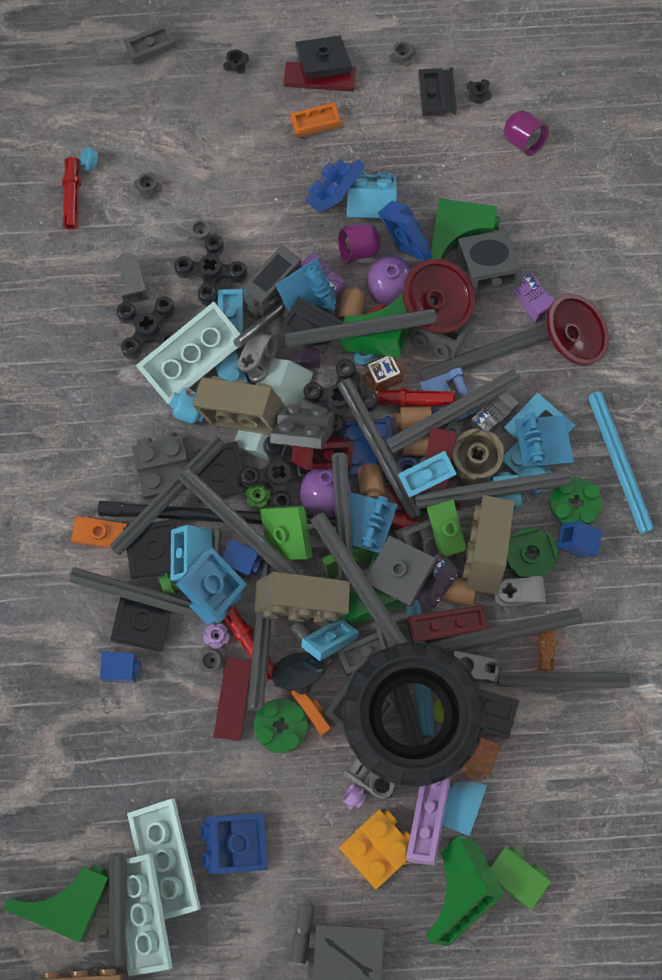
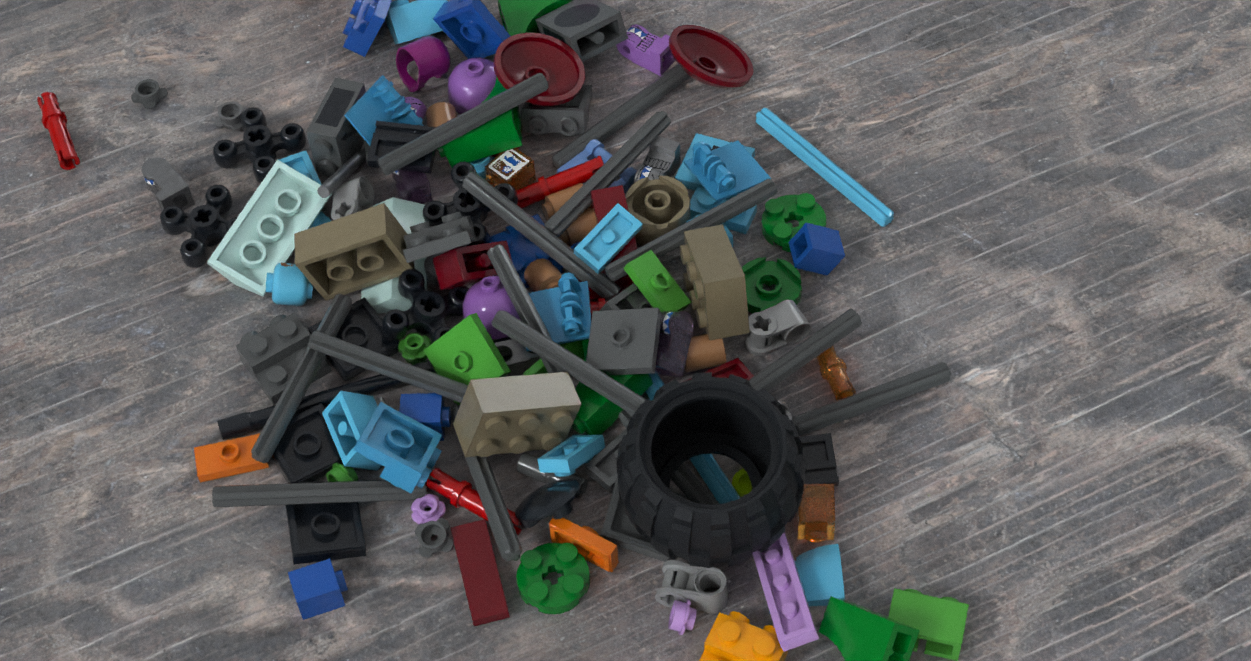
camera: 20 degrees left, 20 degrees down
(88, 158) = (67, 90): medium azure plate -> none

